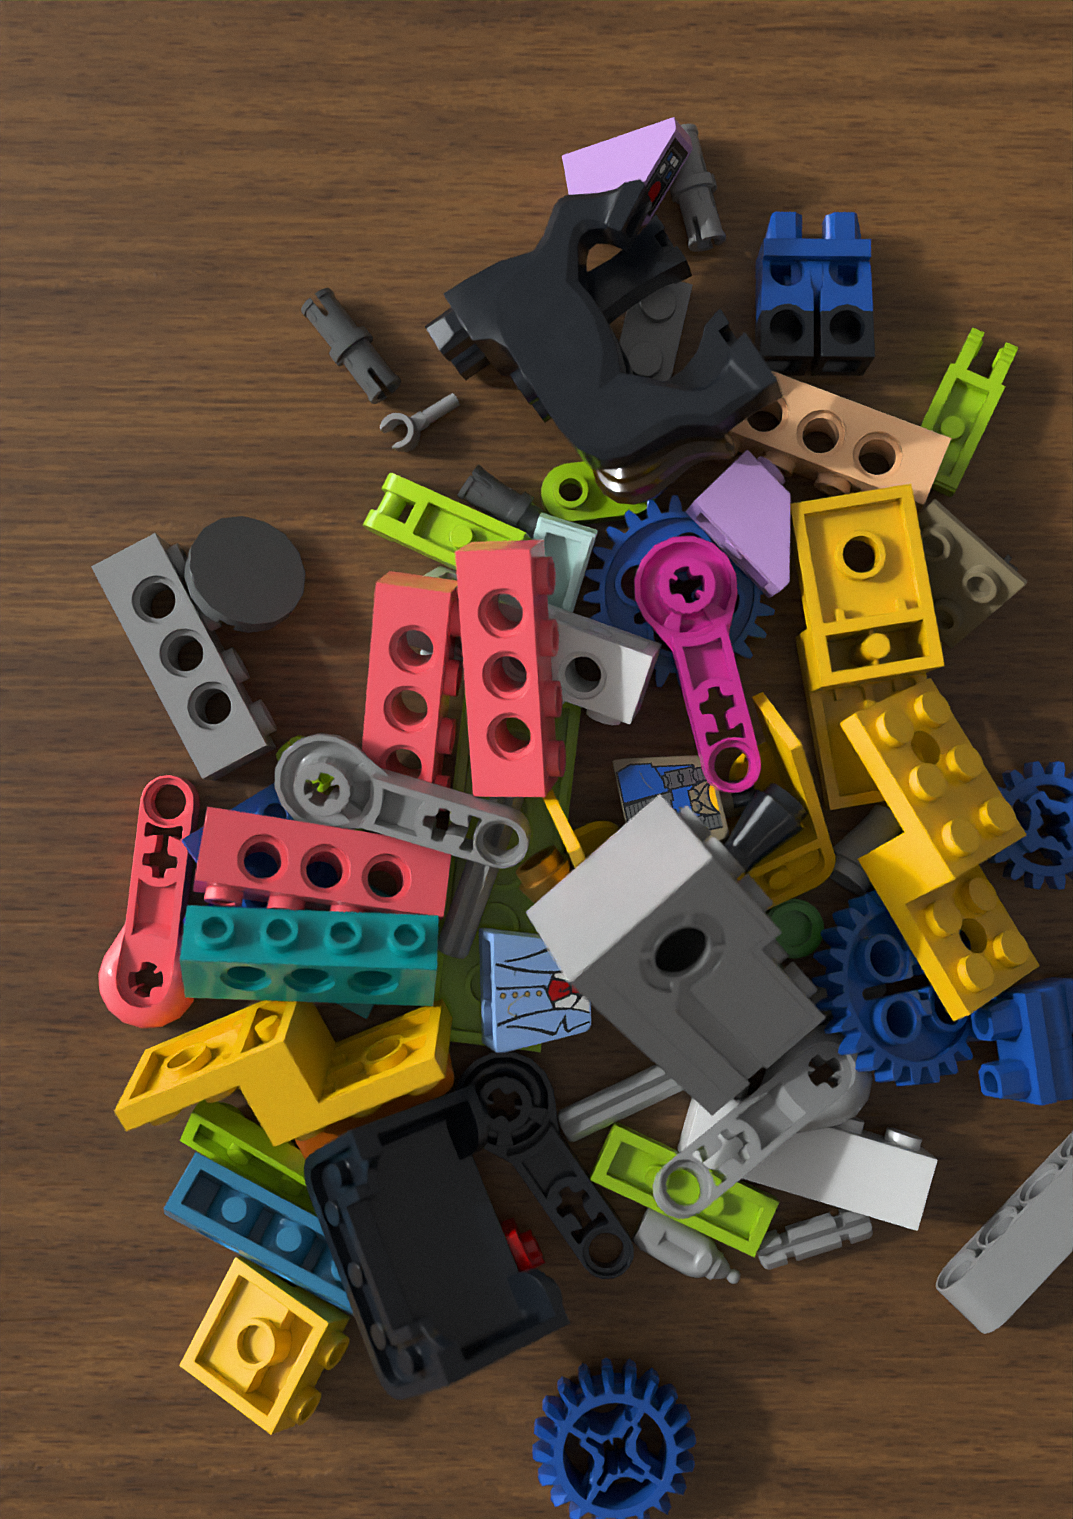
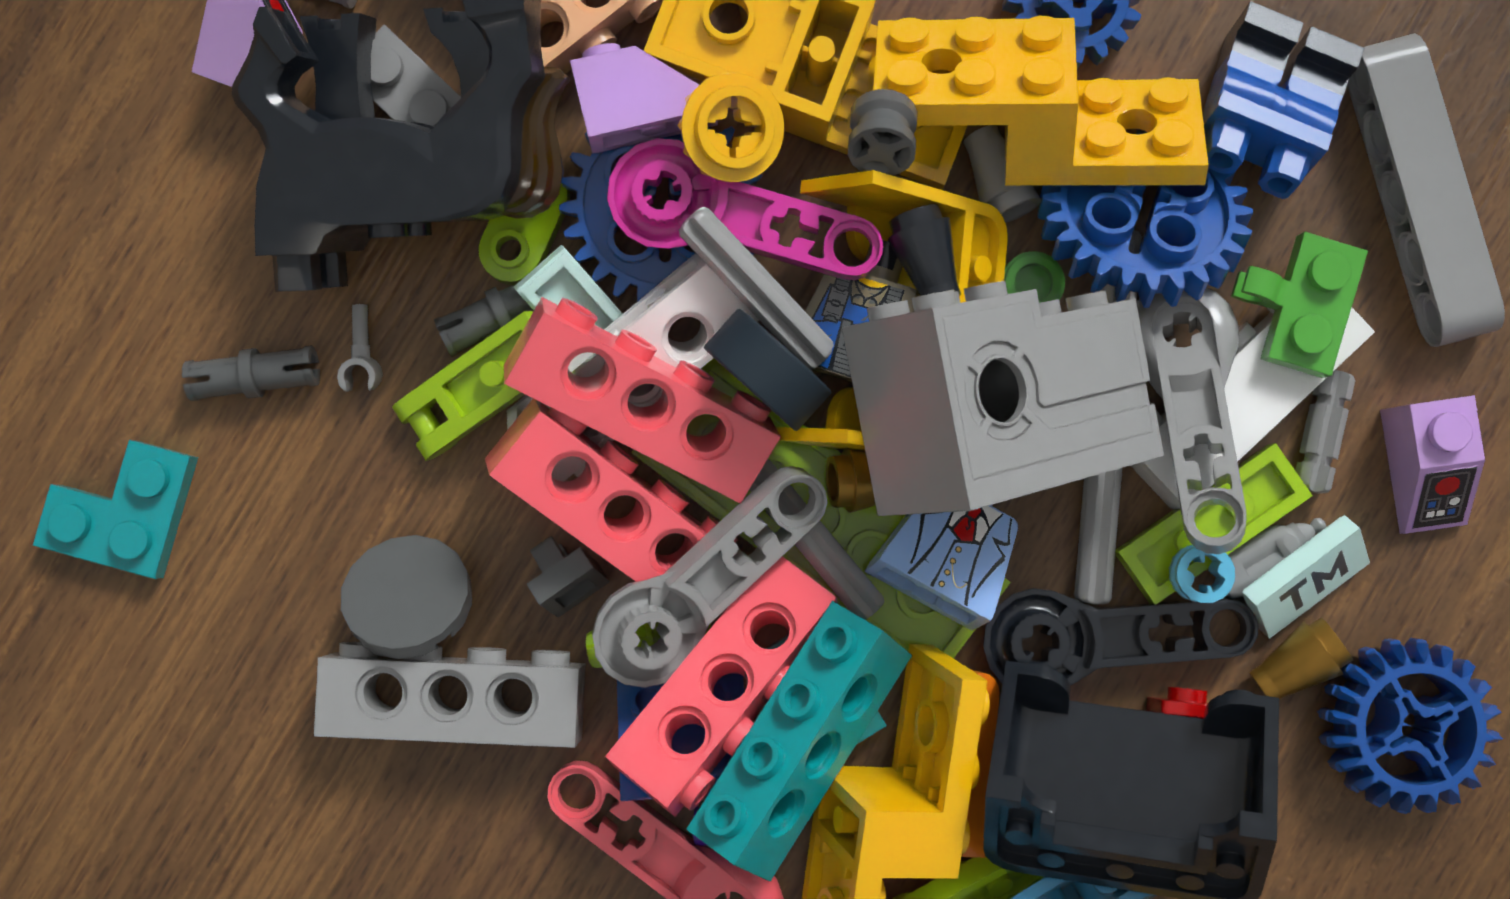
camera: 55 degrees left, 0 degrees up
(179, 326) = (134, 526): none -> teal plate
(334, 690) = (564, 577): none -> dark grey tile
(591, 754) = (767, 369): none -> black wheel
(614, 1326) = (1302, 660): none -> pearl gold cone
(623, 1190) = (1182, 579): none -> medium azure bush
(653, 707) = (756, 287): none -> light grey axle
(686, 1290) = (1307, 576): none -> light aqua tile
(798, 616) = (751, 105): none -> yellow gear
(837, 734) = (882, 132): none -> dark grey wheel
(840, 1341) = (1433, 462): none -> lavender slope
(908, 1162) = (1307, 304): none -> bright green plate

